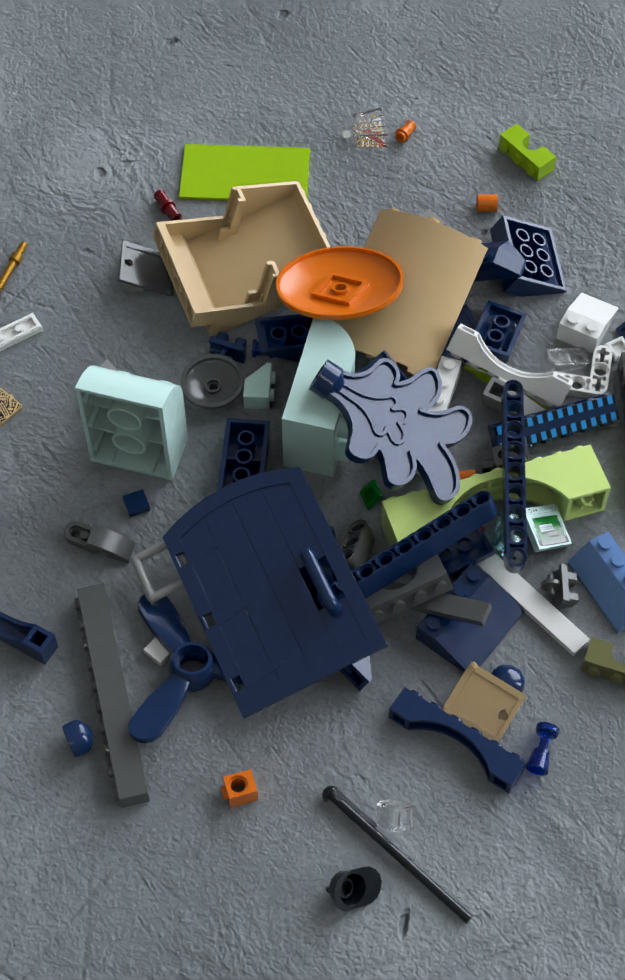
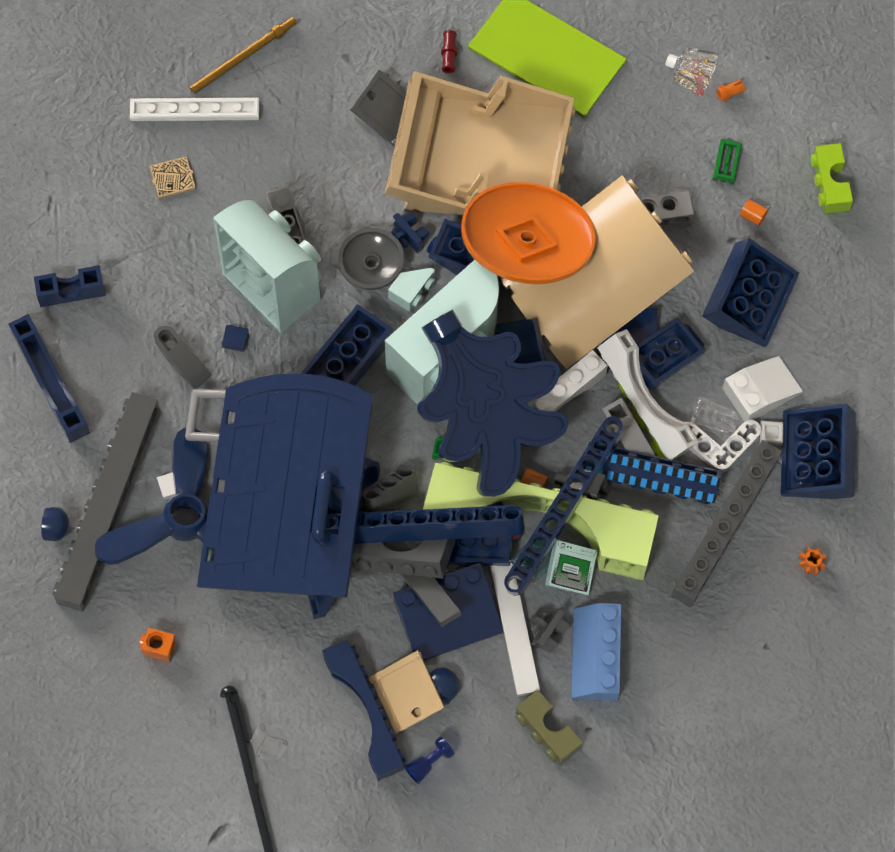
camera: 30 degrees right, 10 degrees up
(354, 887) = (195, 782): black piece -> none
(450, 188) = (724, 177): none -> green tile
(500, 262) = (709, 283): dark blue wedge -> none

